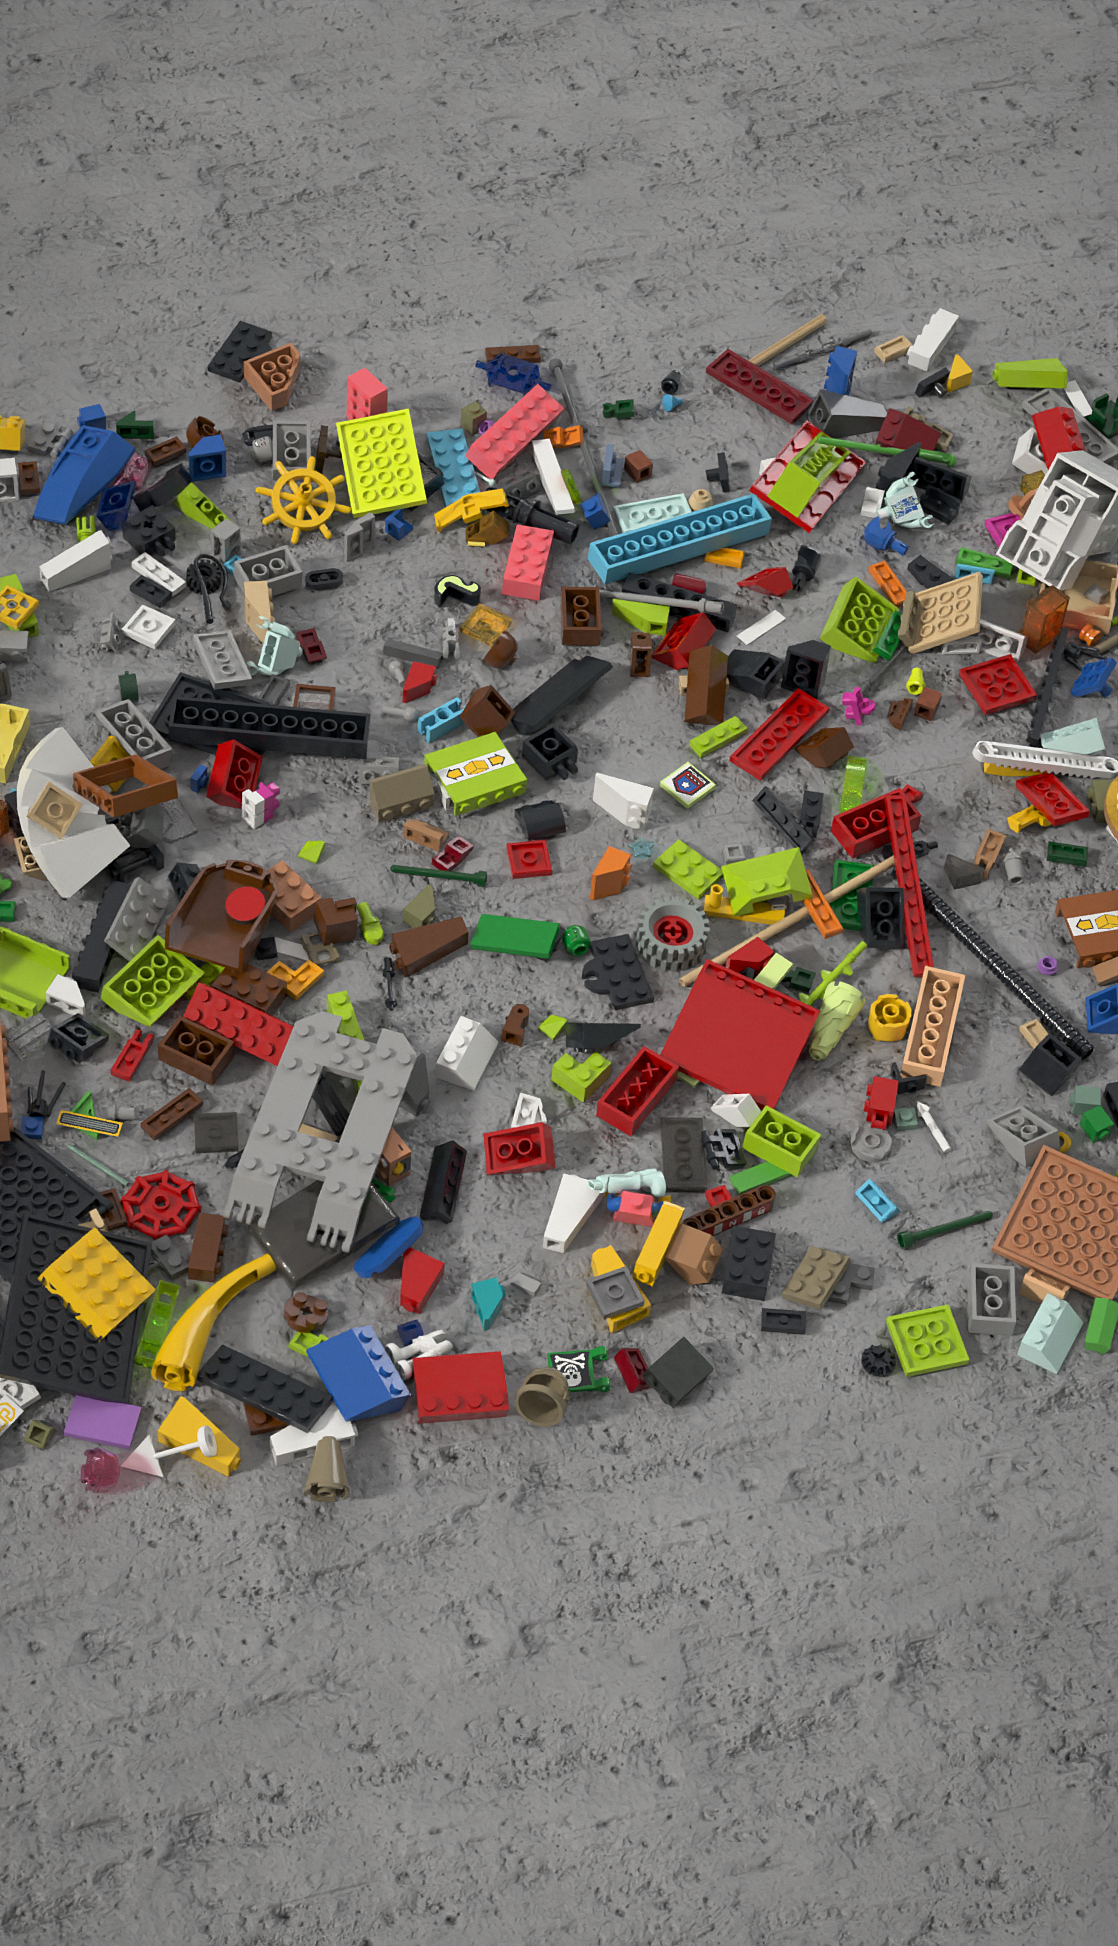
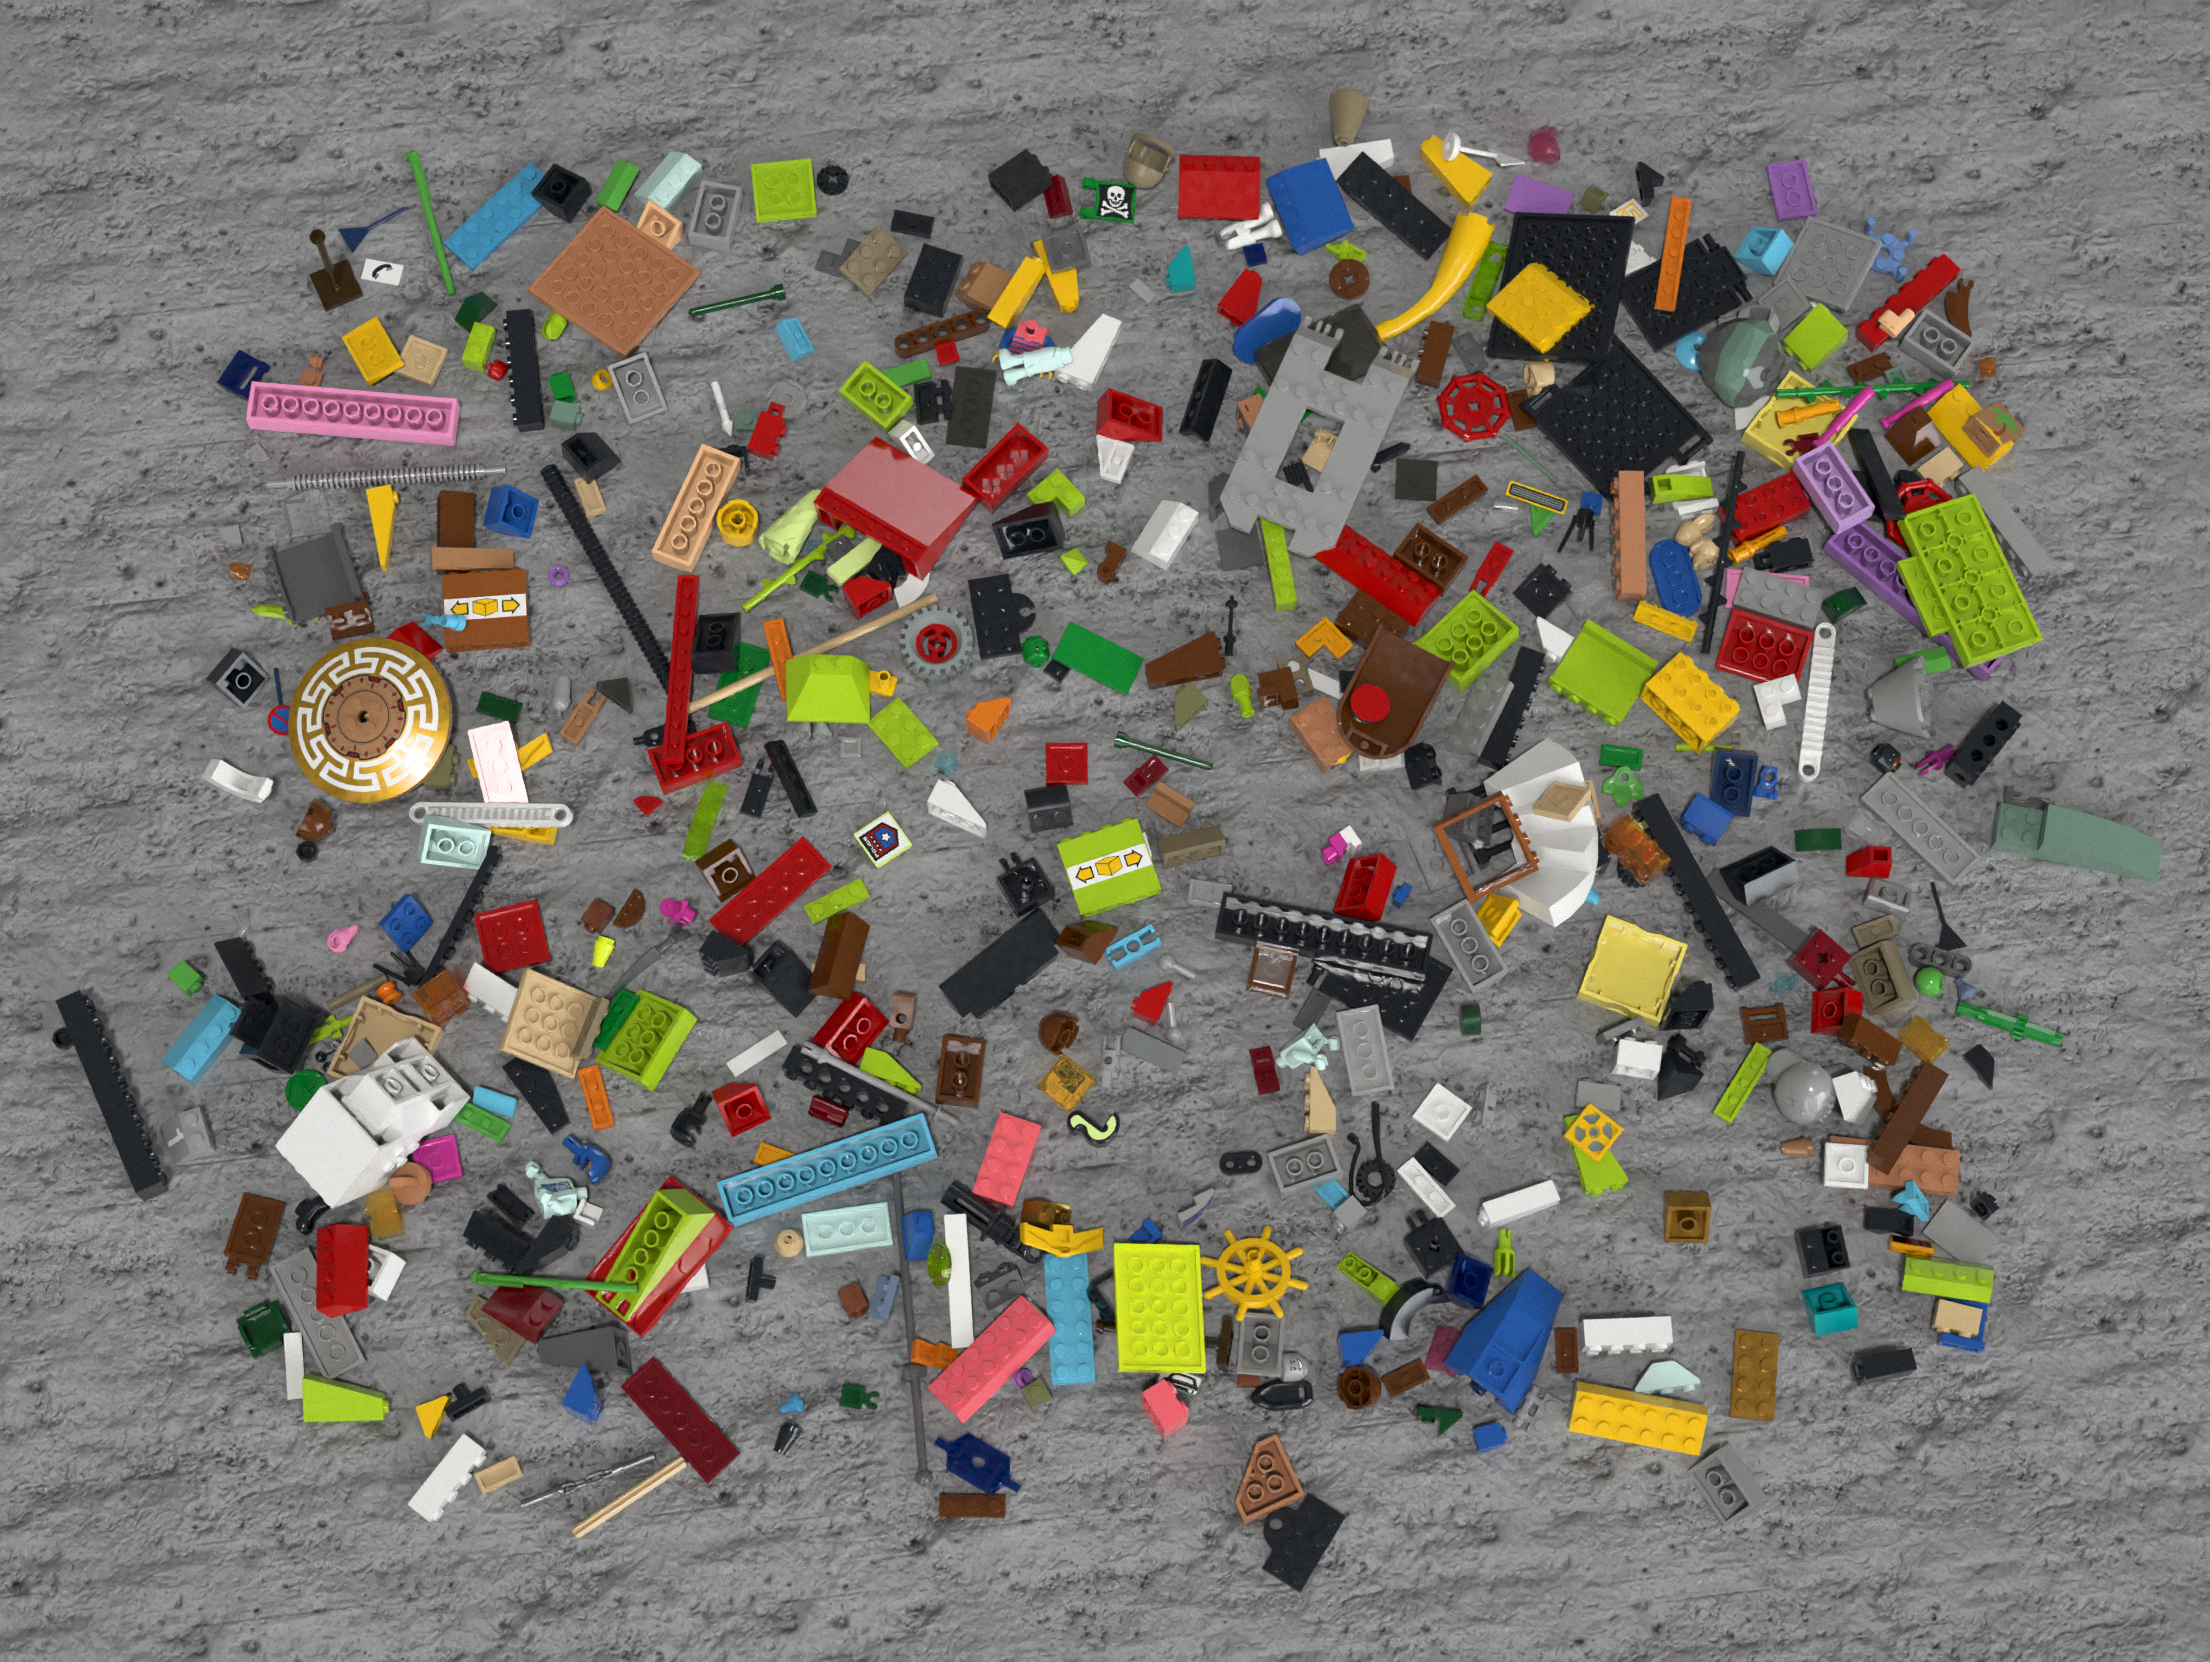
camera: 170 degrees left, 20 degrees up
(312, 851) = (1291, 796): lime slope -> none

